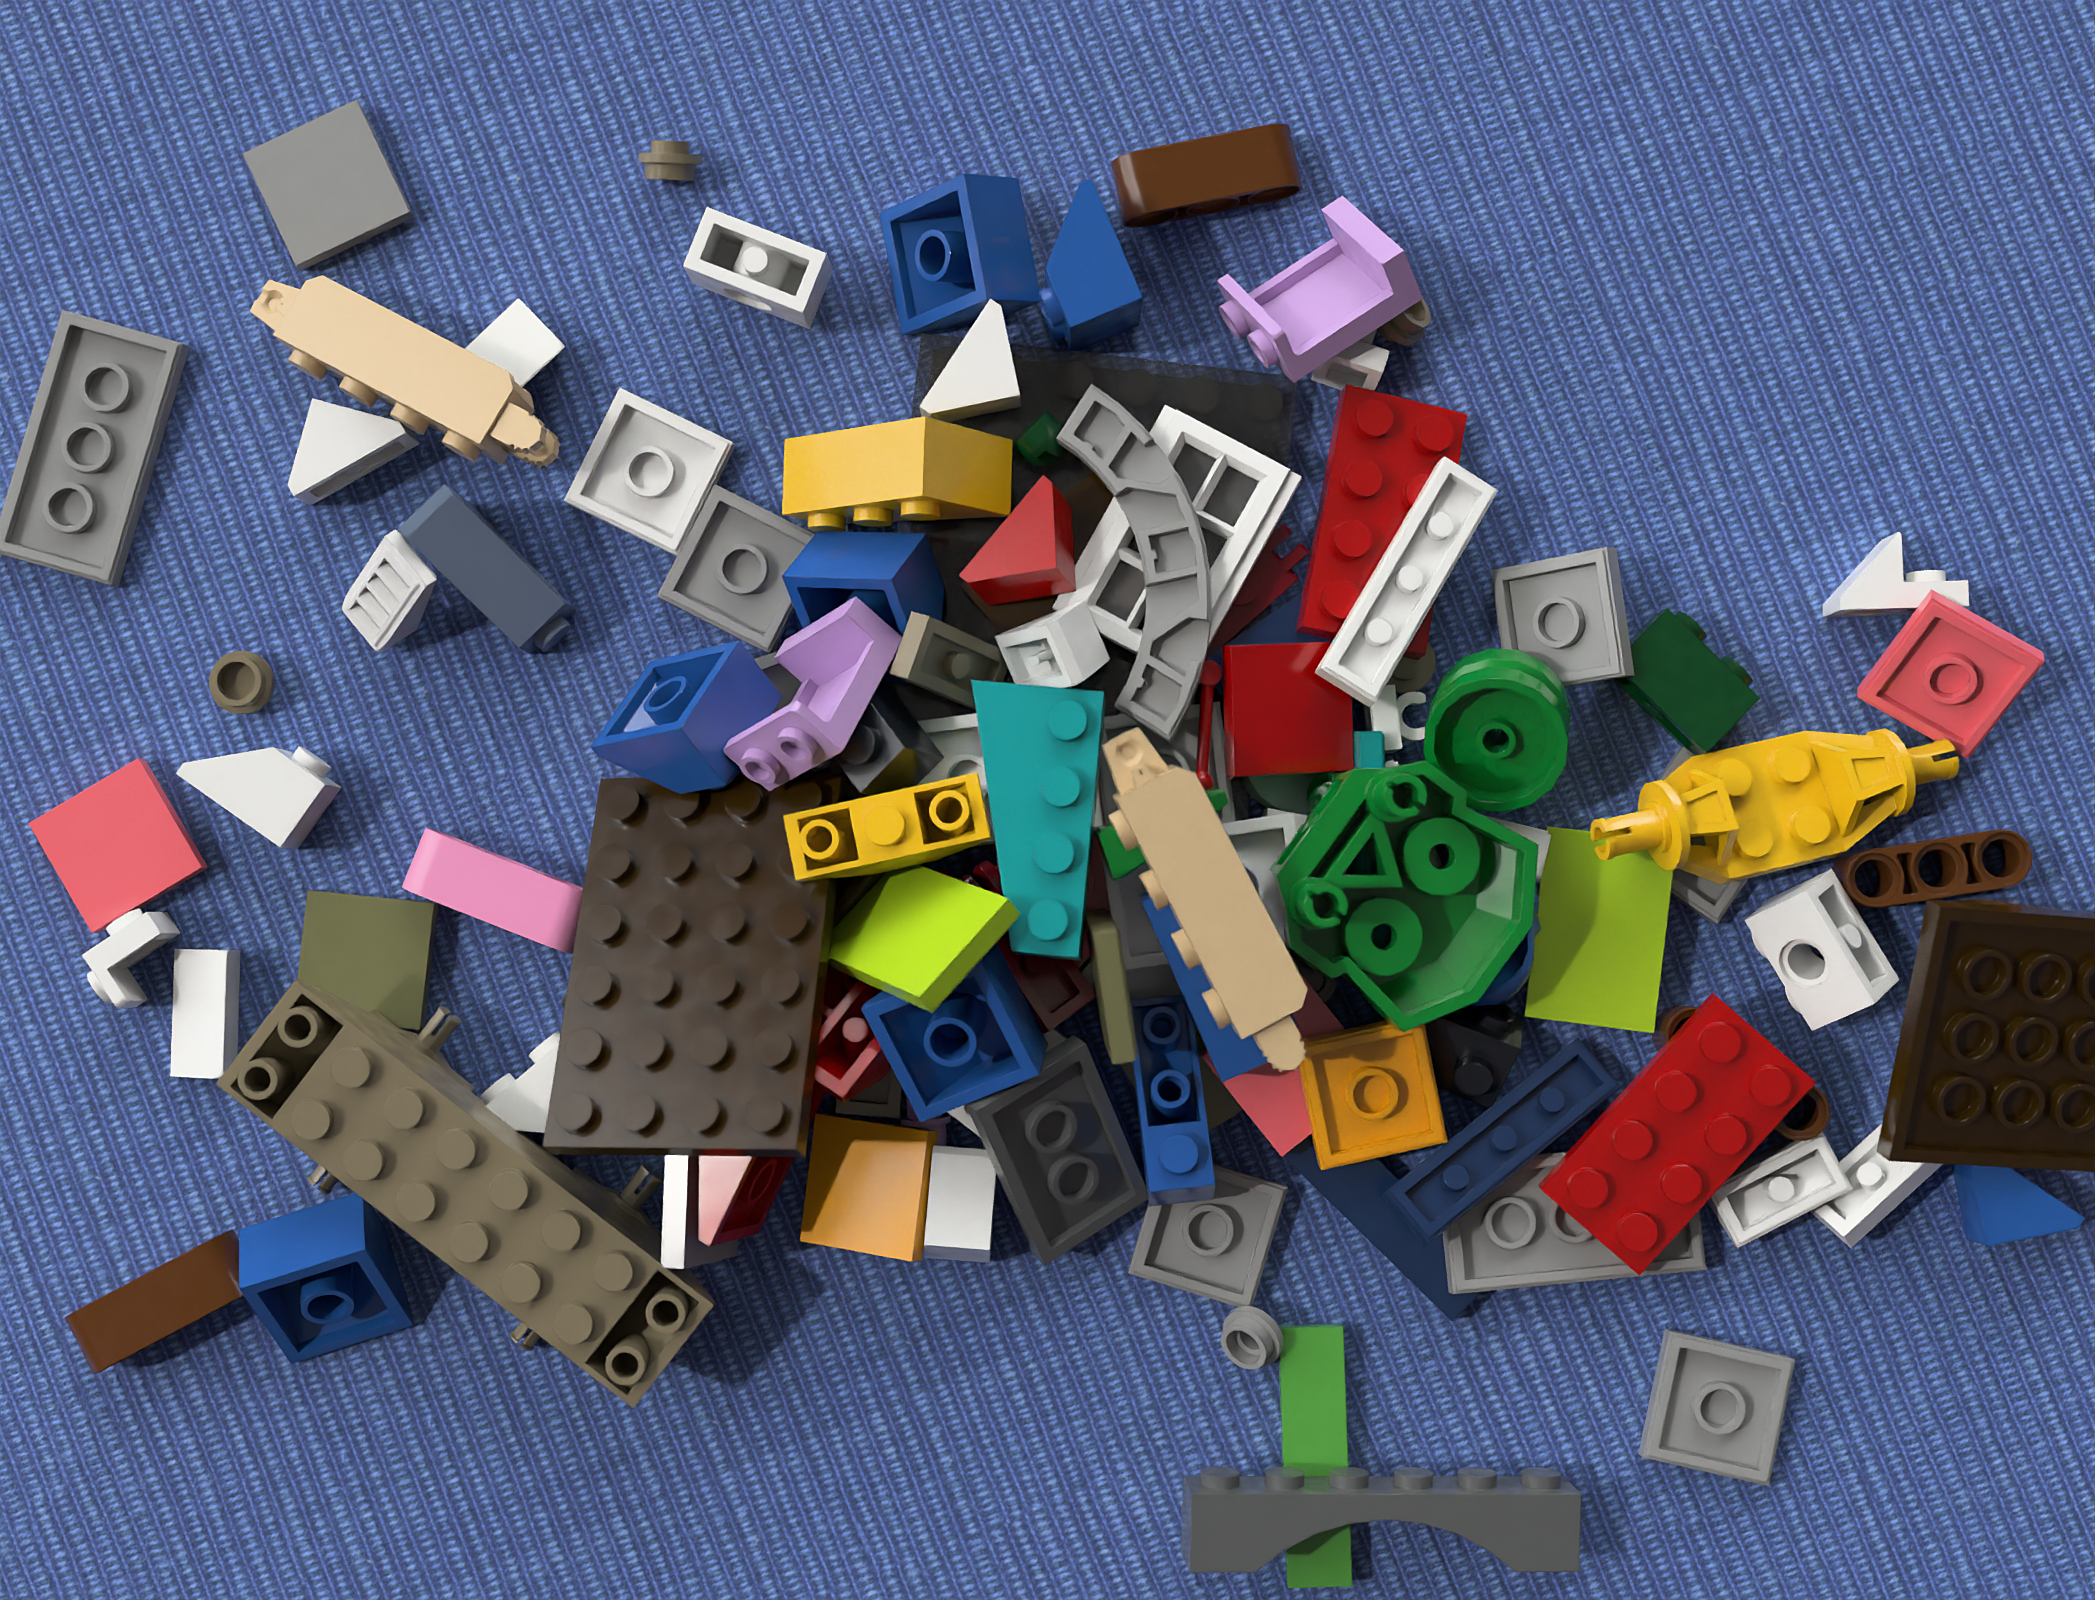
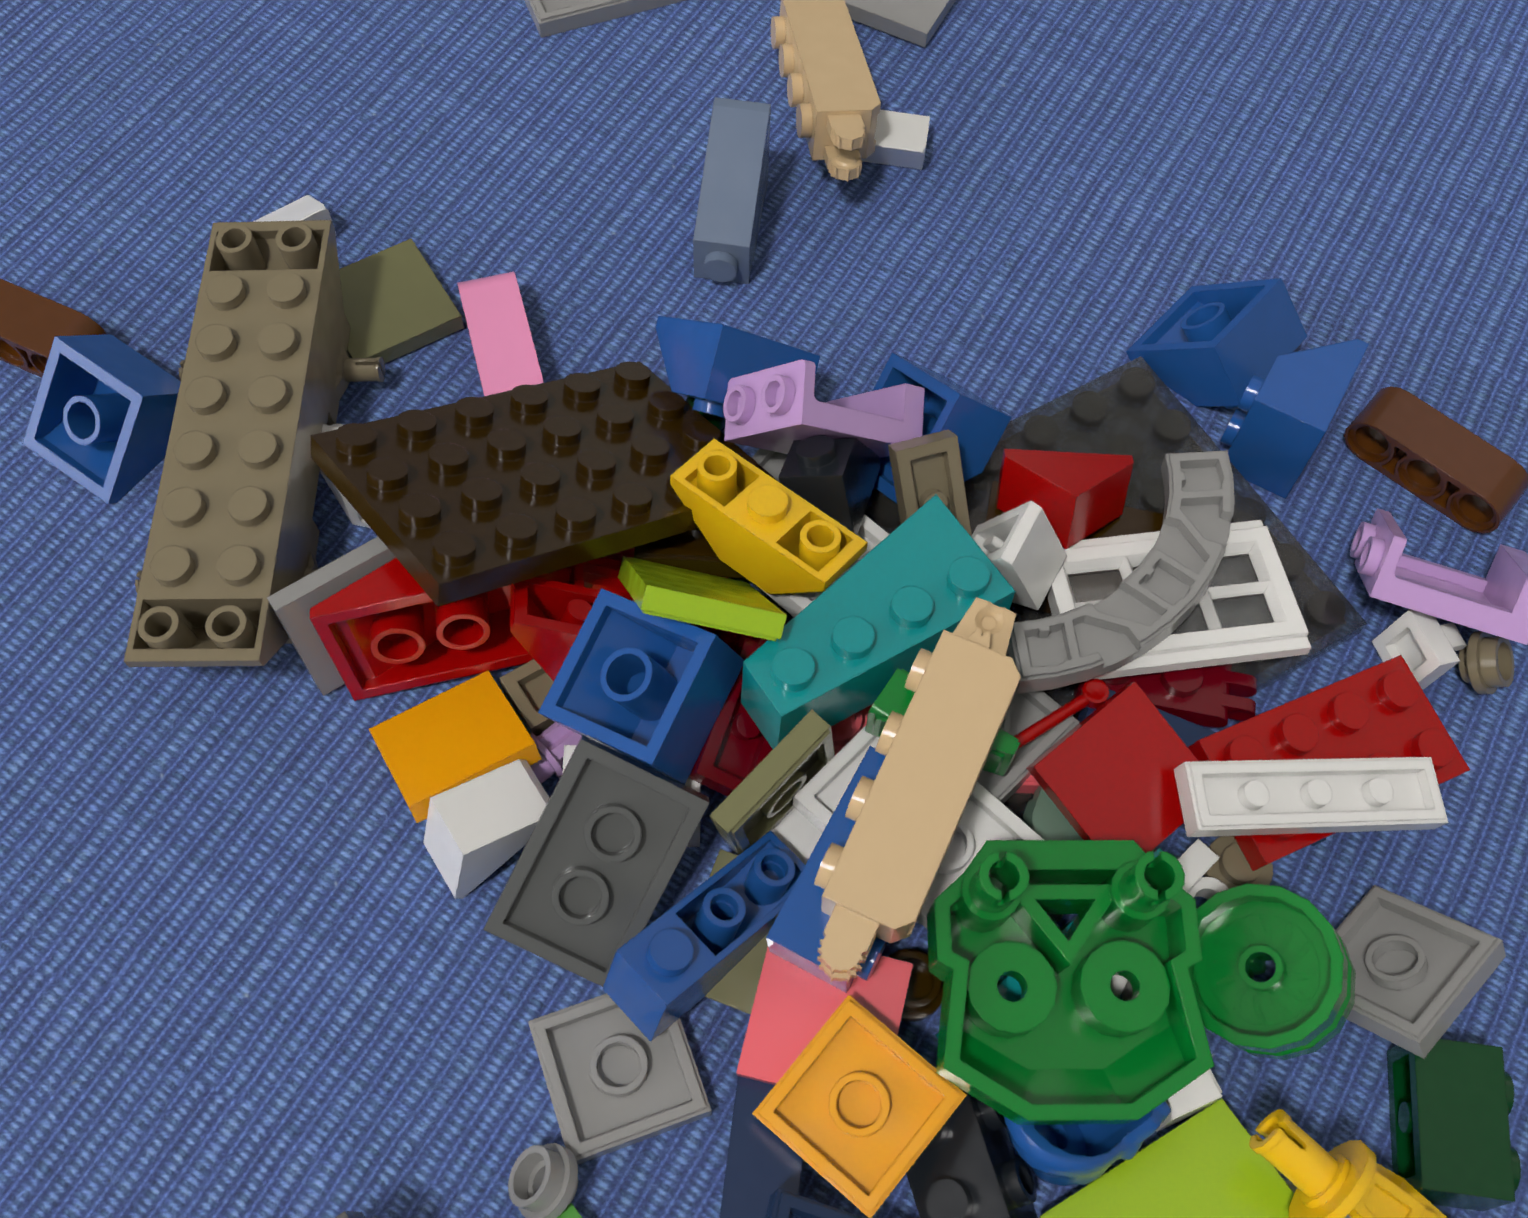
camera: 45 degrees right, 25 degrees down
(118, 845) = (359, 125): coral tile -> none
(129, 941) = (282, 160): white bracket -> none
(241, 682) = (531, 123): dark tan plate -> none
(268, 790) = (467, 174): white slope -> none
(342, 447) = (738, 73): white slope -> none
(390, 593) = (665, 151): white slope -> none
(649, 472) = (885, 264): white tile -> none
(669, 161) = (1101, 143): dark tan plate -> none
(735, 569) = (859, 343): light grey tile -> none
(758, 268) = (1087, 223): white brick -> none
(896, 474) = (1043, 375): yellow wedge -> none
(978, 375) = (1150, 387): white slope -> none
(1039, 441) = (1147, 462): dark green hinge -> none

